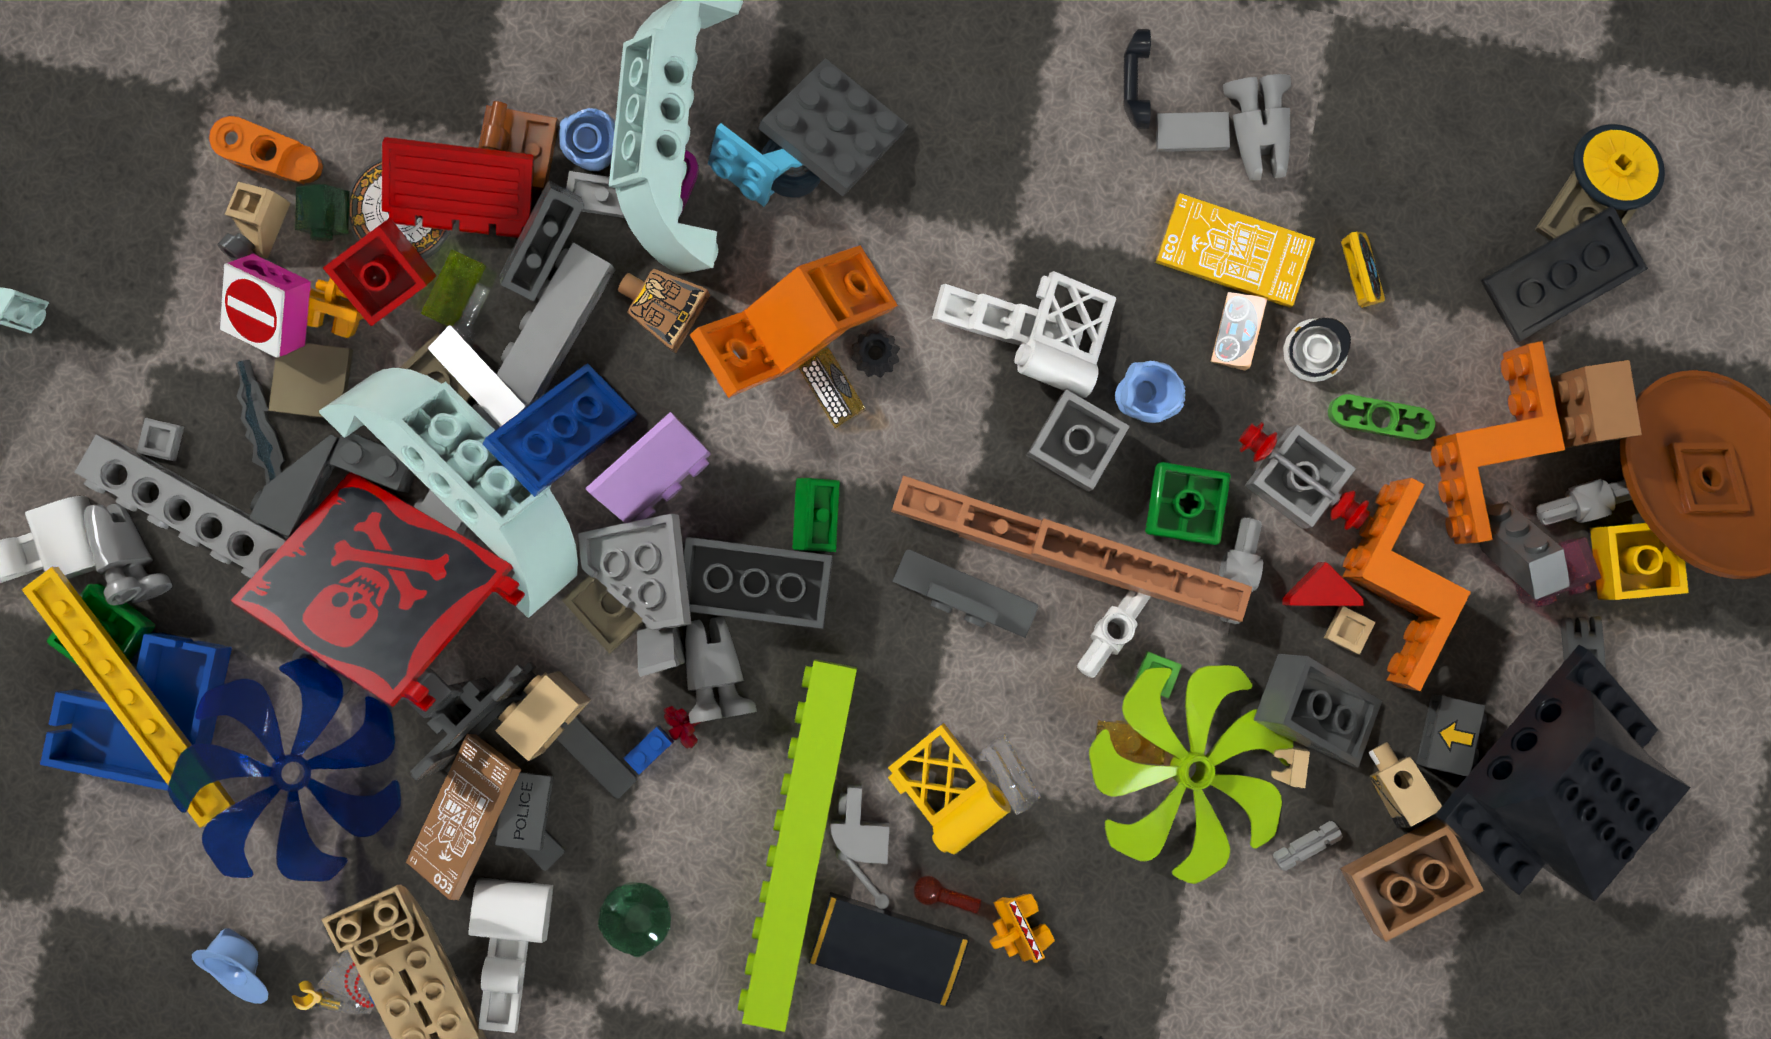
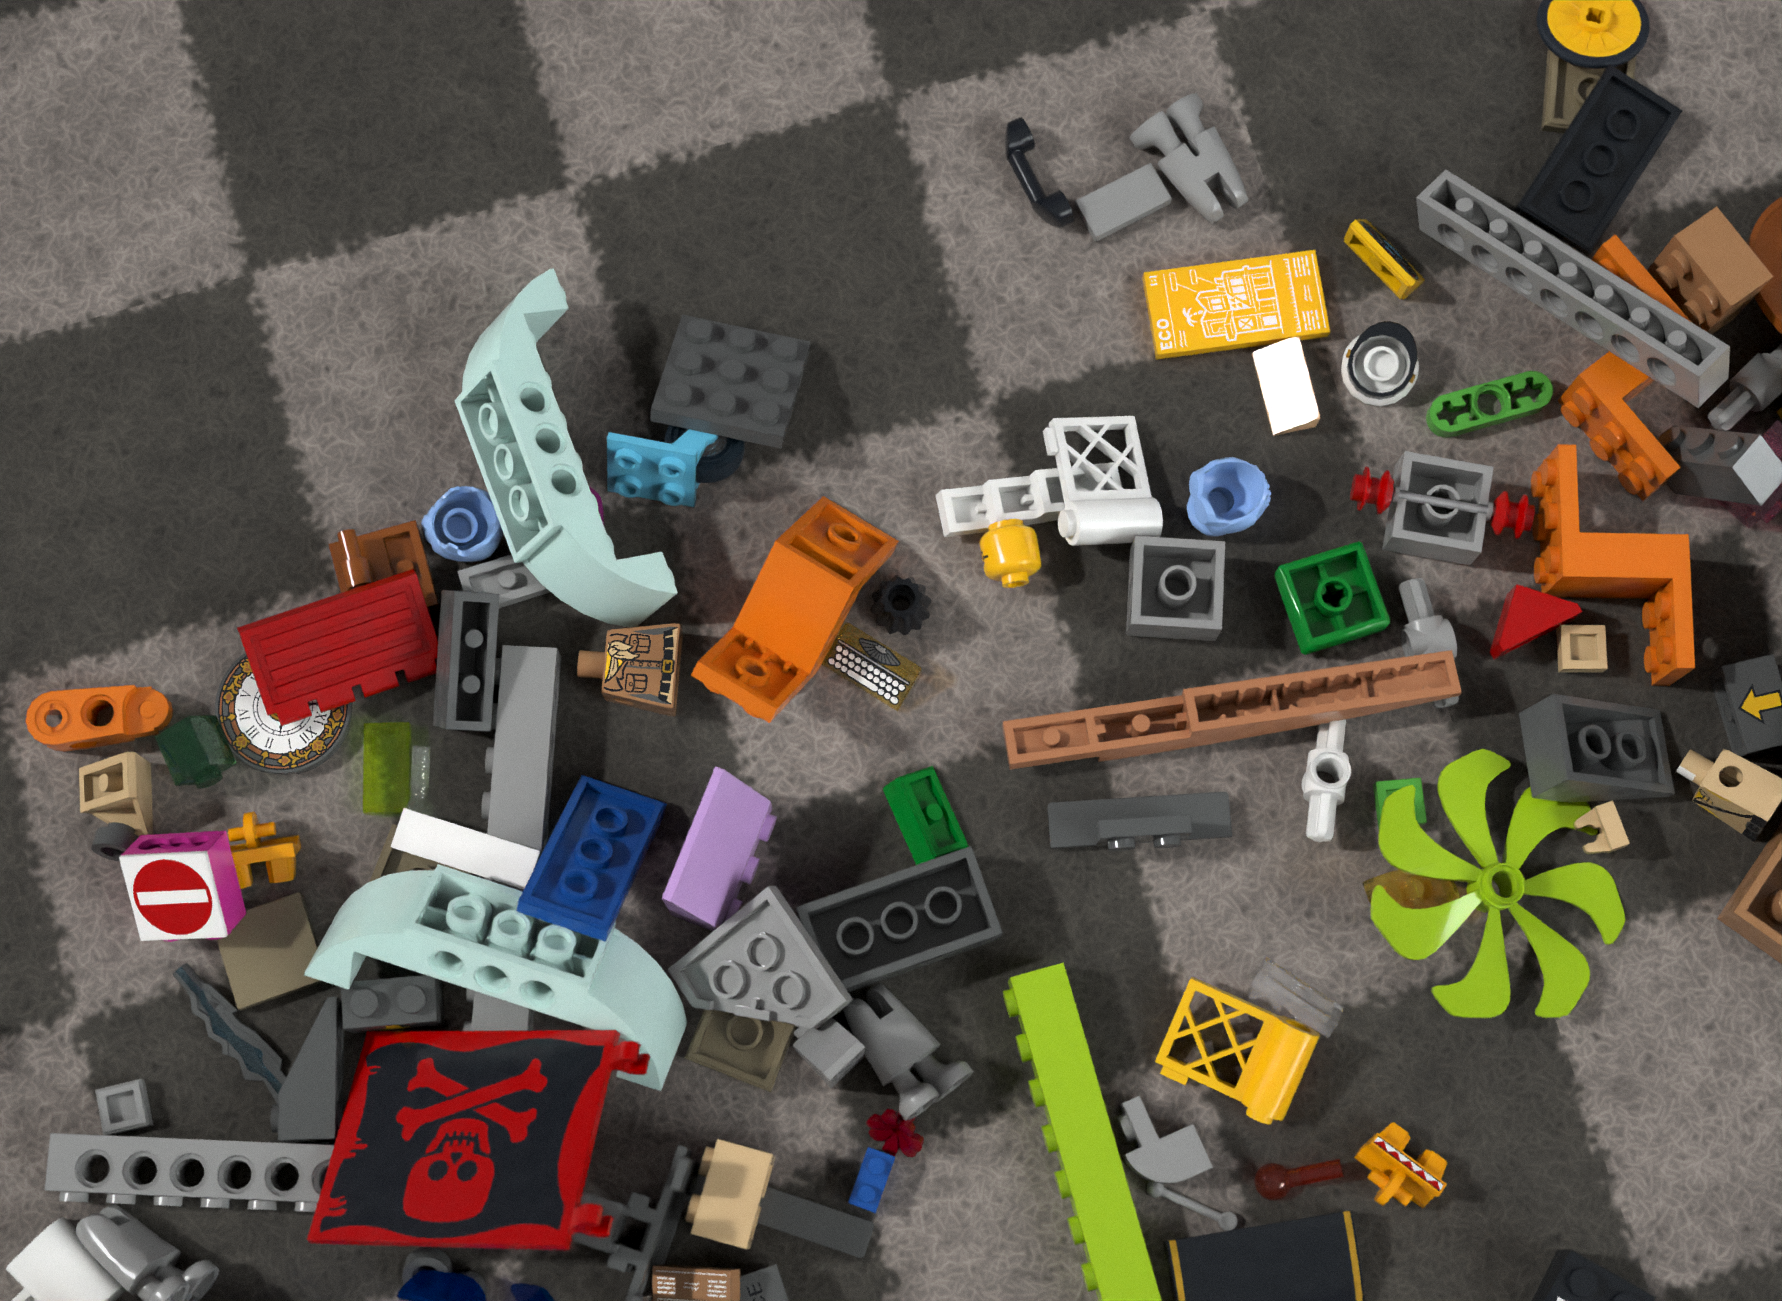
camera: 25 degrees left, 10 degrees down
(380, 272) = (298, 784): red brick -> none
(972, 354) = (1010, 552): none -> yellow head
(1307, 845) = (1667, 911): light grey axle -> none
(1488, 367) = (1574, 288): none -> light grey brick

